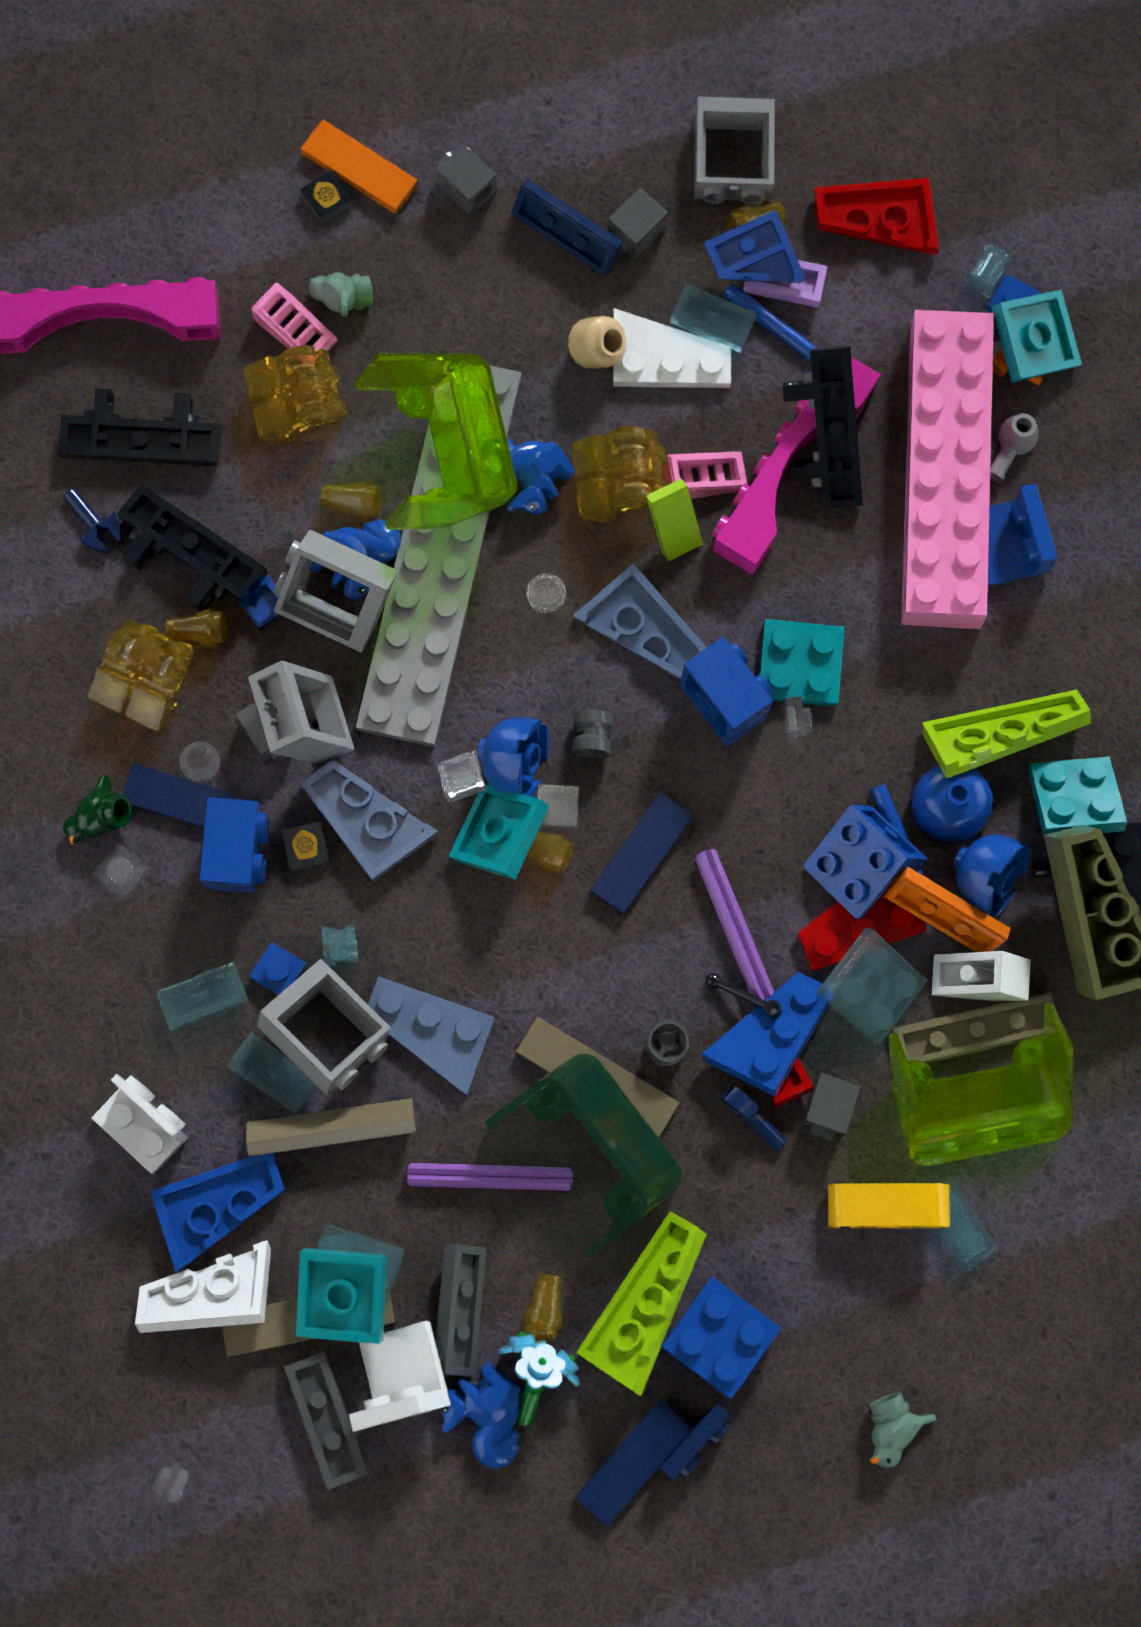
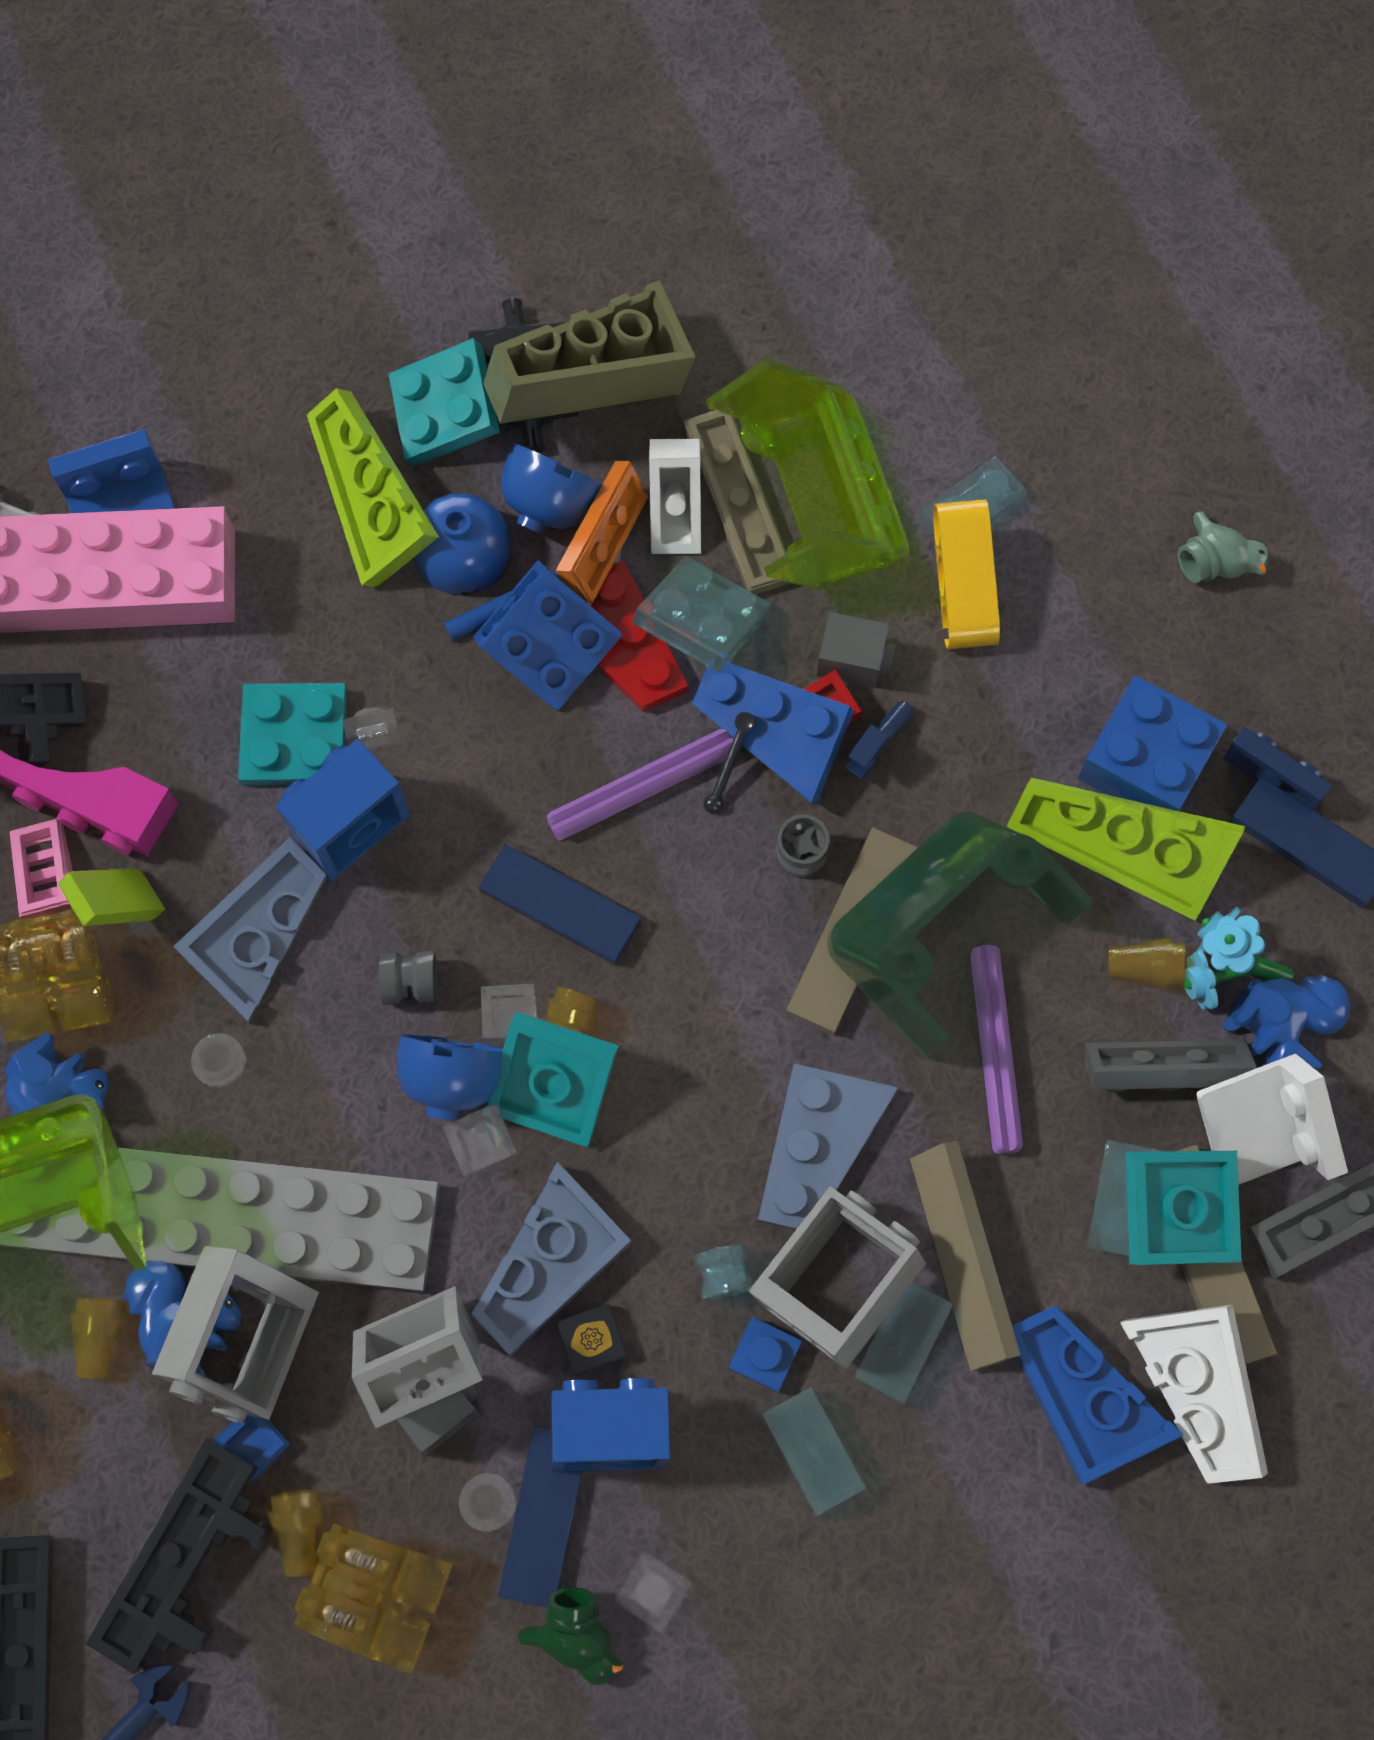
camera: 90 degrees left, 5 degrees down
(140, 1127) = (998, 1513): white bracket -> none

